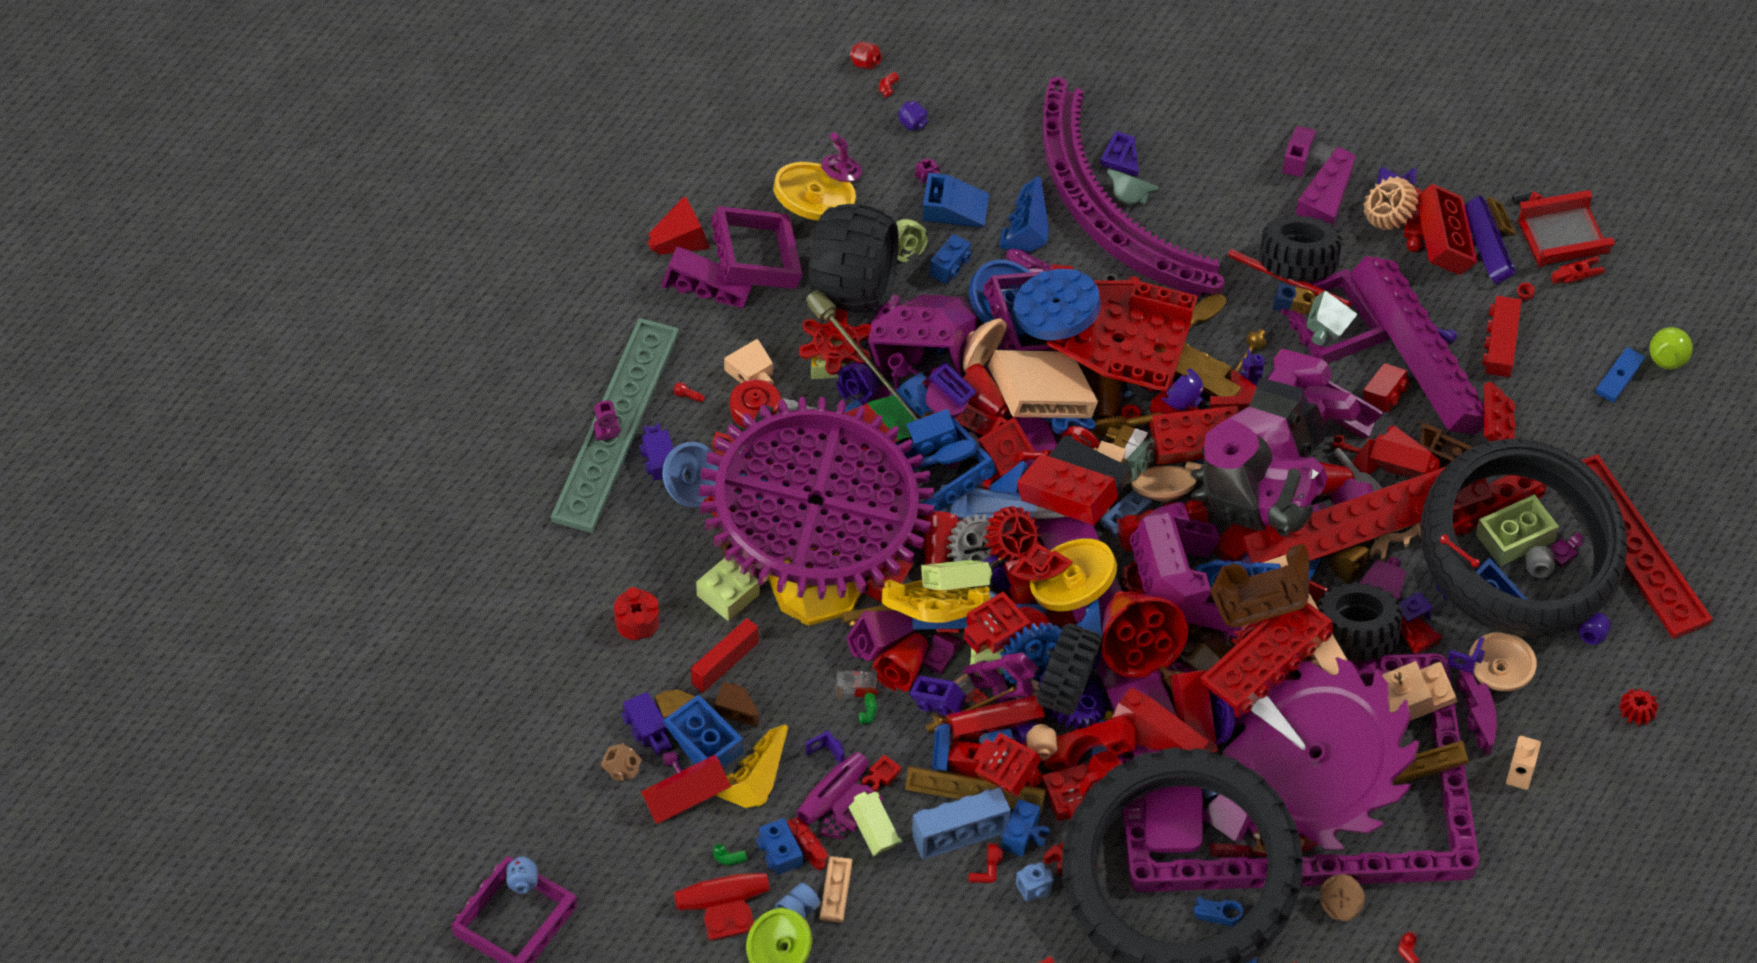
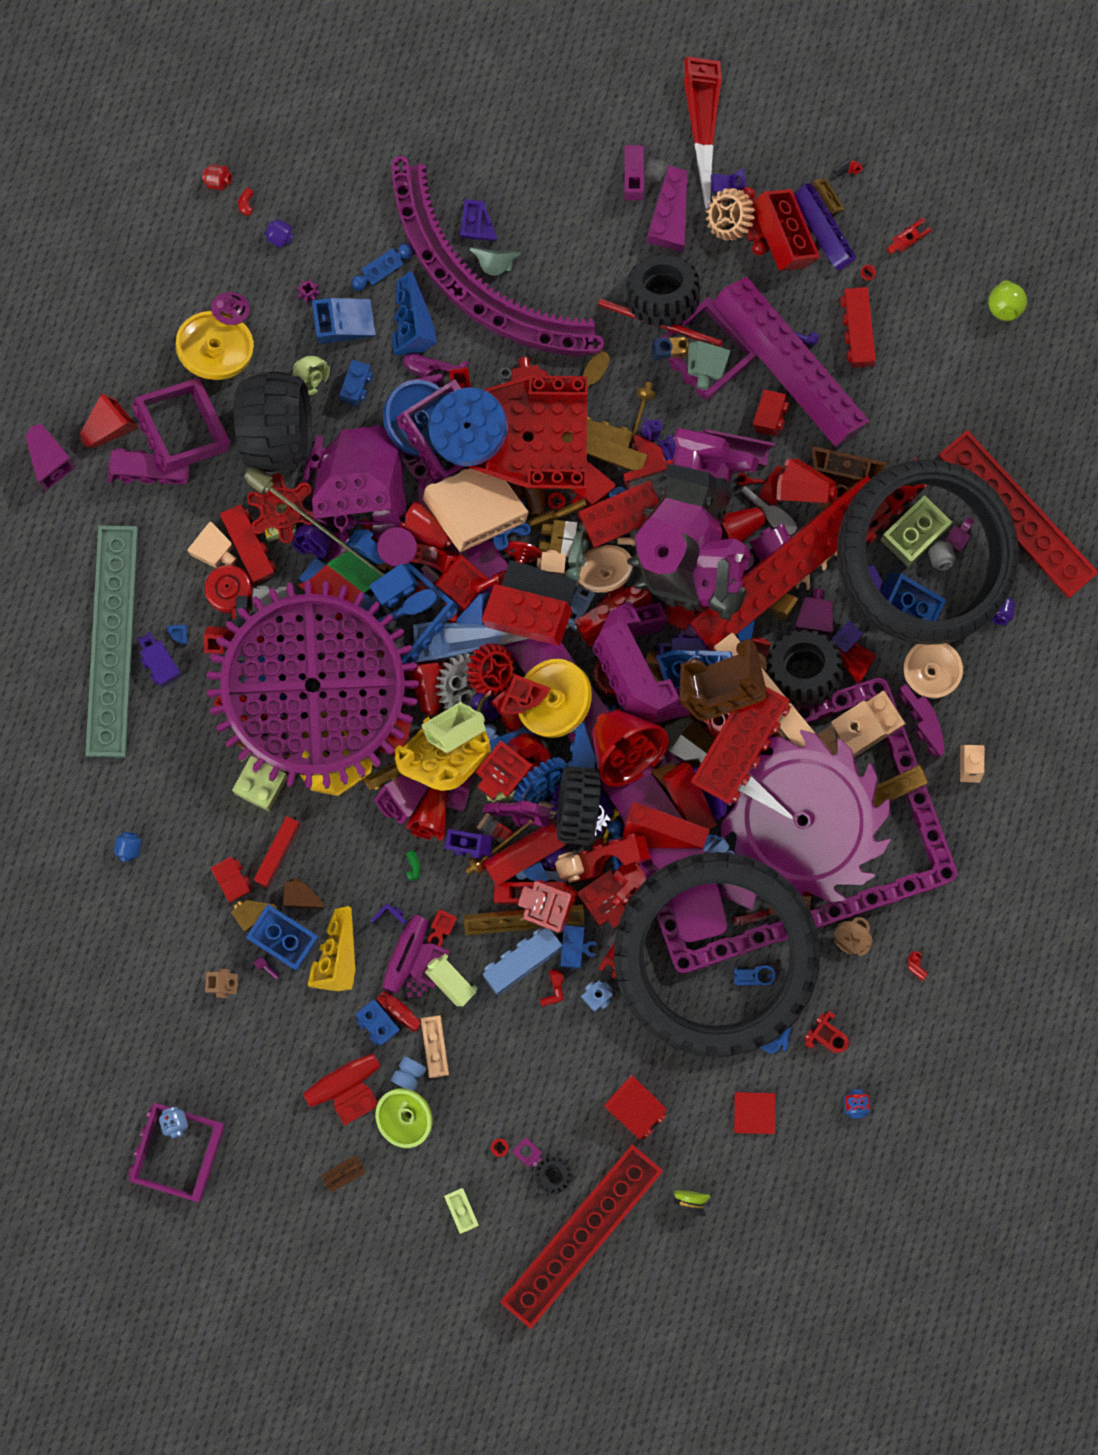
camera: 15 degrees left, 25 degrees up
(565, 611) = (127, 846): none -> blue head
(607, 422) = (105, 649): magenta leg -> none
(609, 244) = (47, 456): none -> magenta slope
(636, 614) = (194, 843): red brick -> none
(646, 722) = (230, 935): dark purple brick -> none
(665, 669) = (231, 879): none -> red brick
(681, 390) = (159, 588): red piece -> none
(685, 789) = (283, 996): red piece -> none
(687, 459) = (193, 694): medium blue dish -> none
(688, 434) = (178, 633): none -> blue tile
(727, 858) = (335, 1043): green arm -> none
(789, 367) = (247, 544): none -> red brick
(855, 684) = (395, 846): clear leg -> none
(940, 748) = (485, 892): blue tile -> none
(949, 387) = (383, 528): dark purple tile -> none
(983, 343) = (411, 483): light nougat dish -> none
(1010, 169) = (382, 267): none -> blue plate
(1185, 392) = (601, 476): dark purple cylinder -> none
(1390, 101) = (702, 92): none -> red plate
(1444, 539) = (866, 589): red hinge -> none
(1470, 662) = (913, 676): dark purple bracket -> none
(1498, 414) = (876, 420): red plate -> none
(1562, 228) = (886, 195): piece -> none
(1620, 375) = (971, 328): blue tile -> none
(1638, 706) = (1052, 669): red gear -> none

